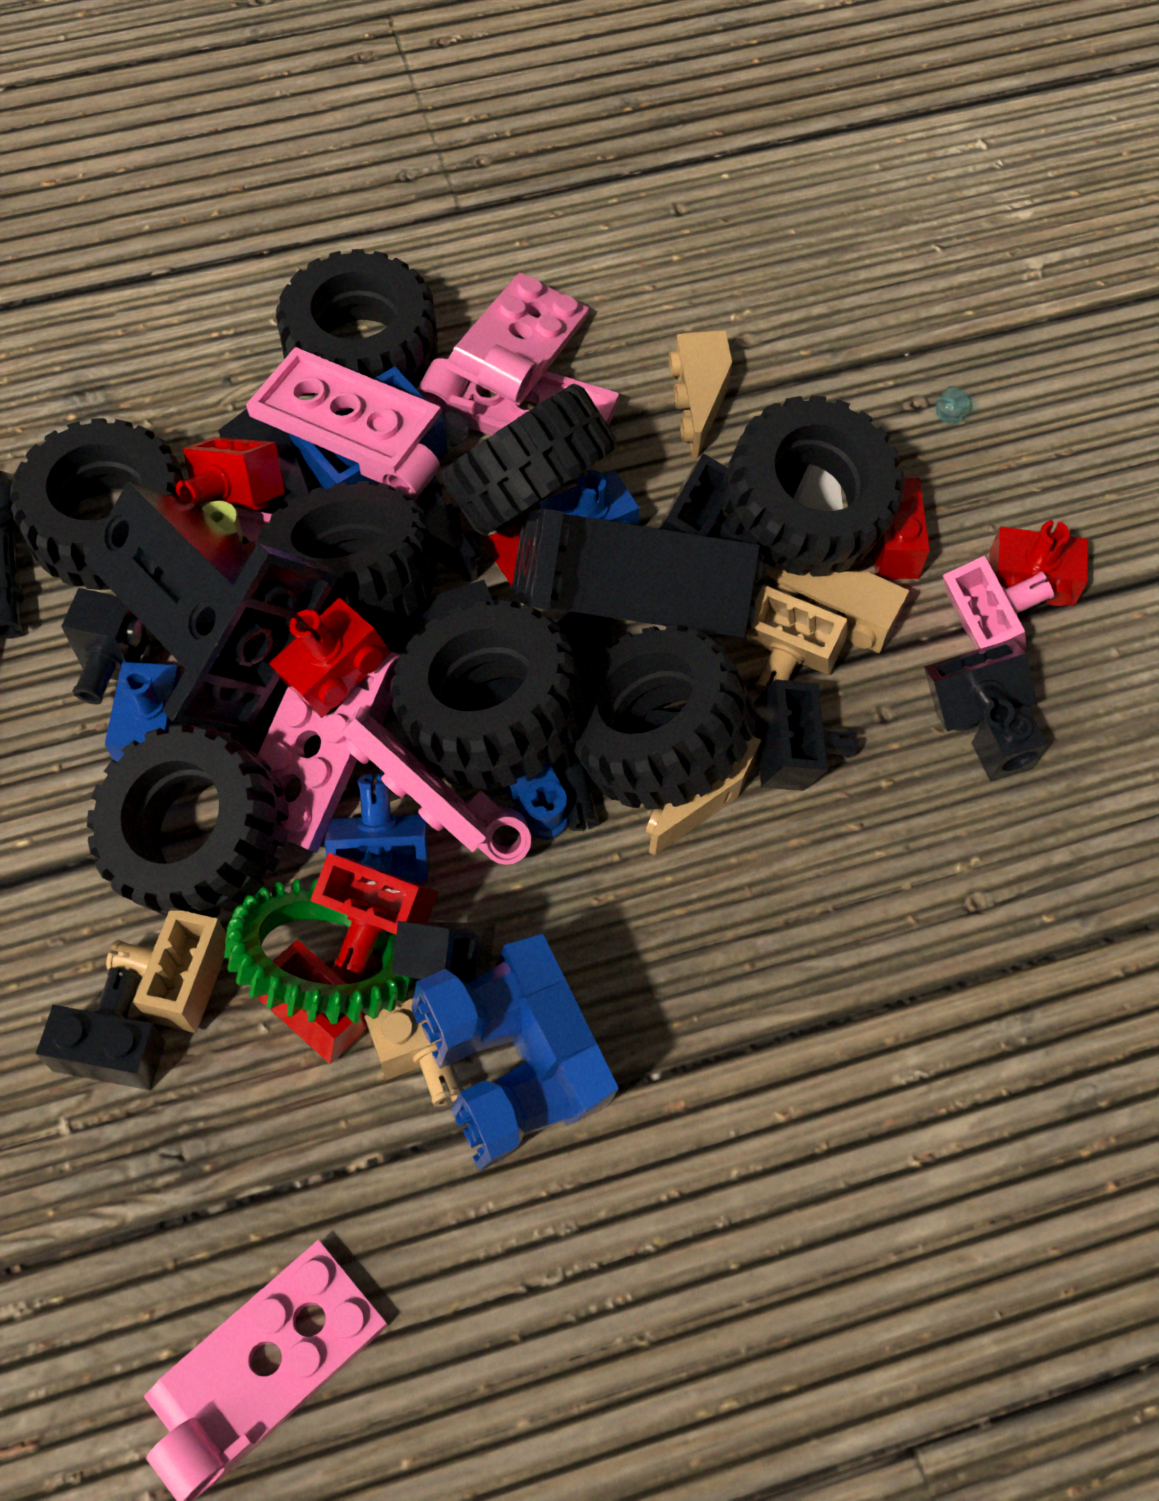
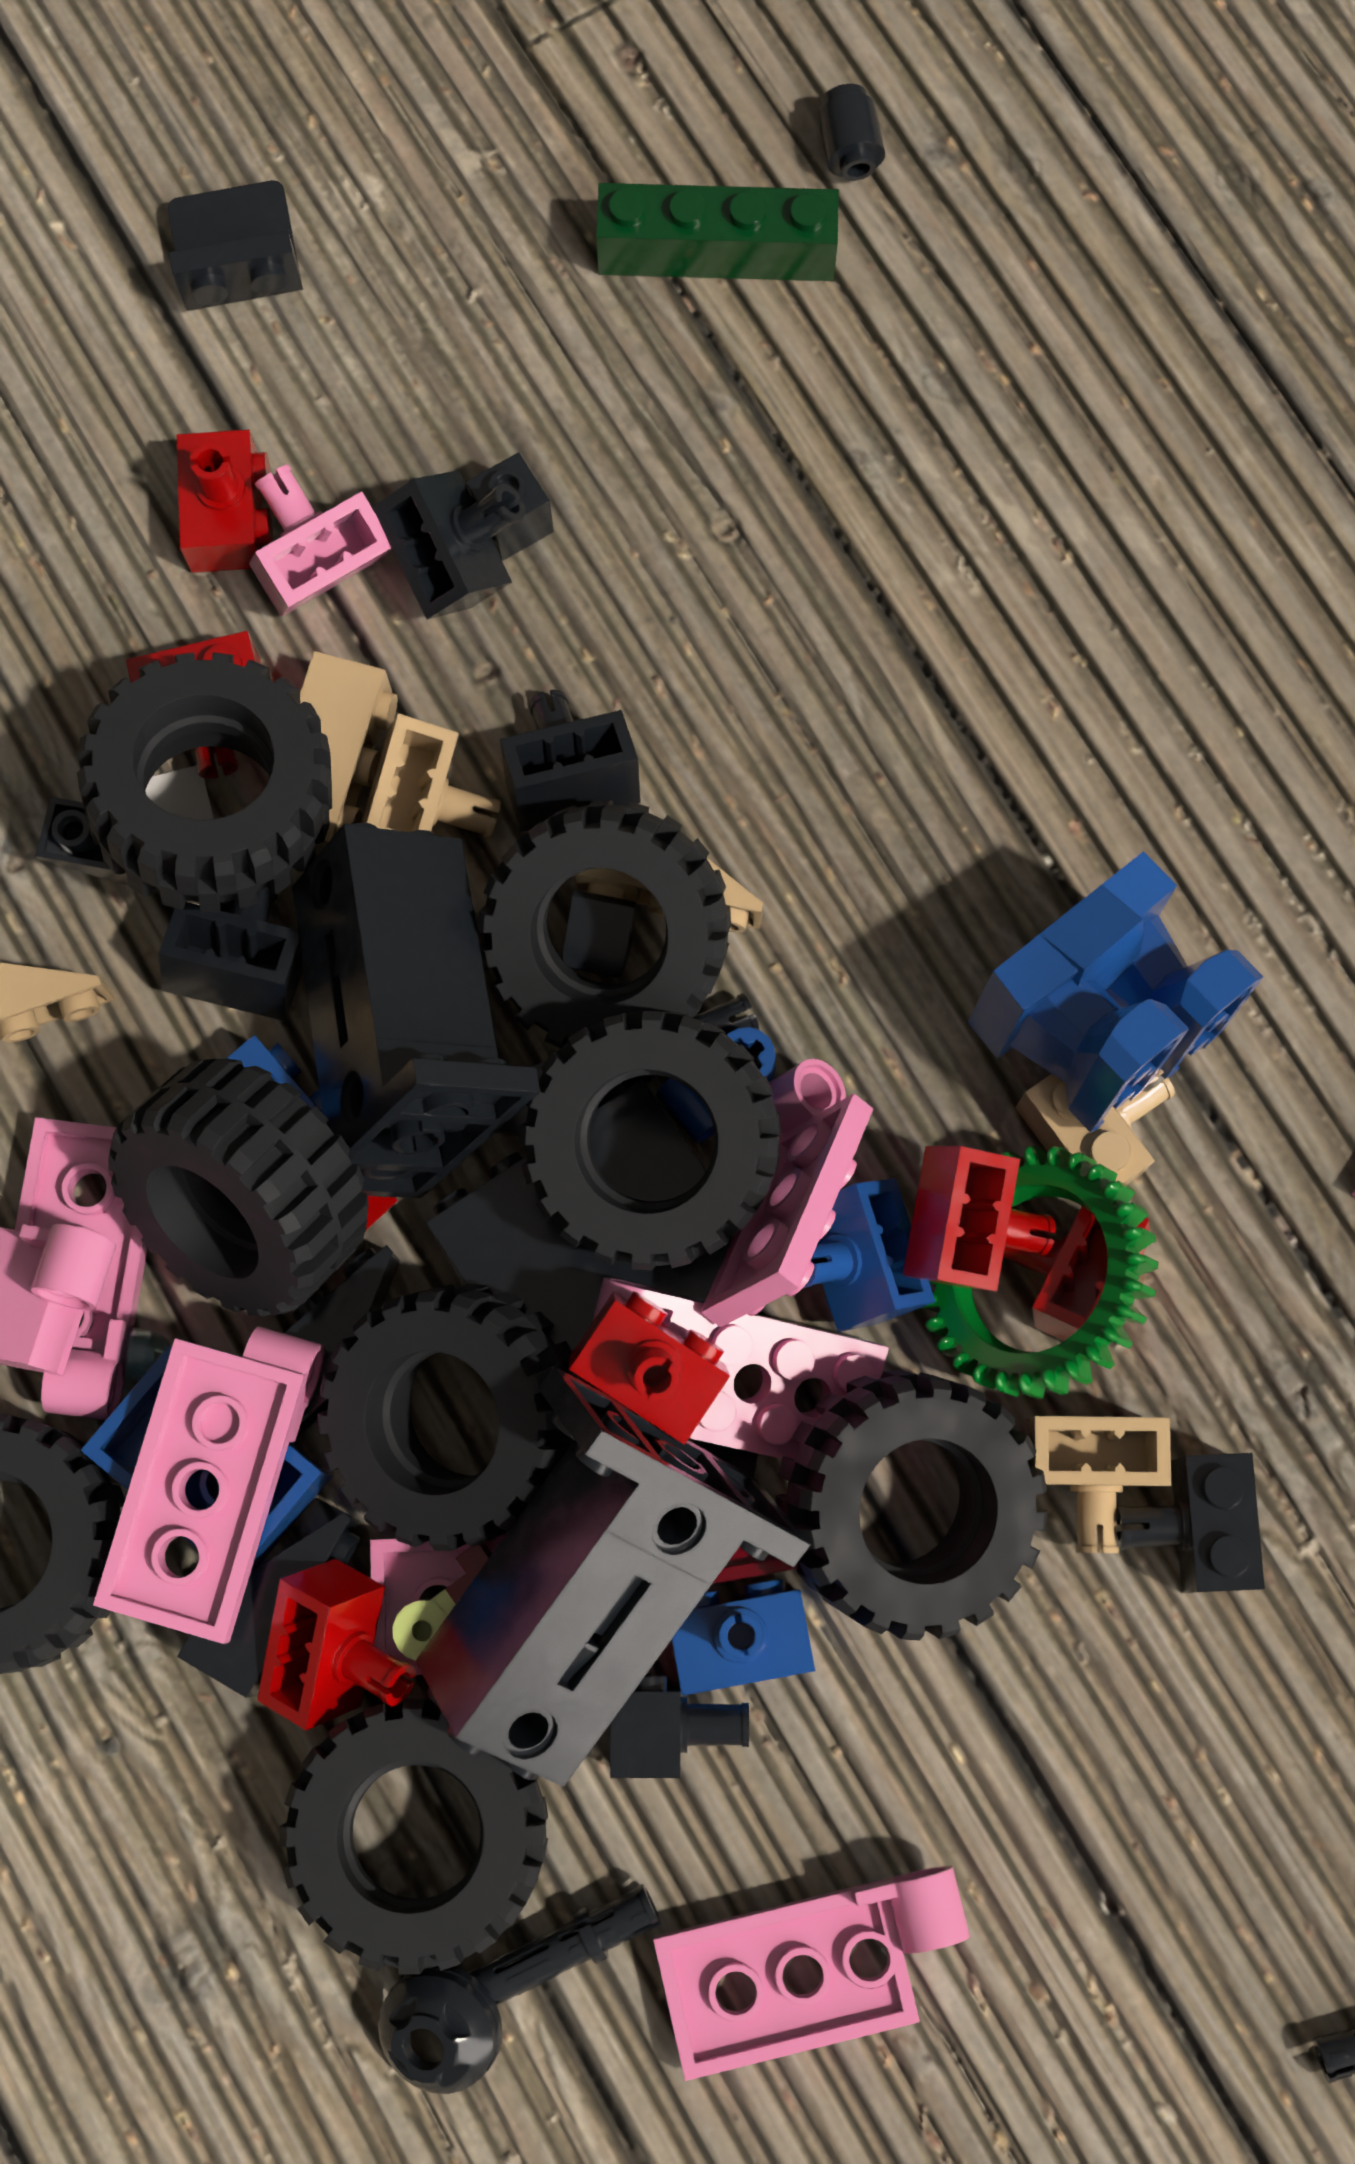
camera: 100 degrees left, 15 degrees up
(434, 946) = (1017, 1101): black slope -> none

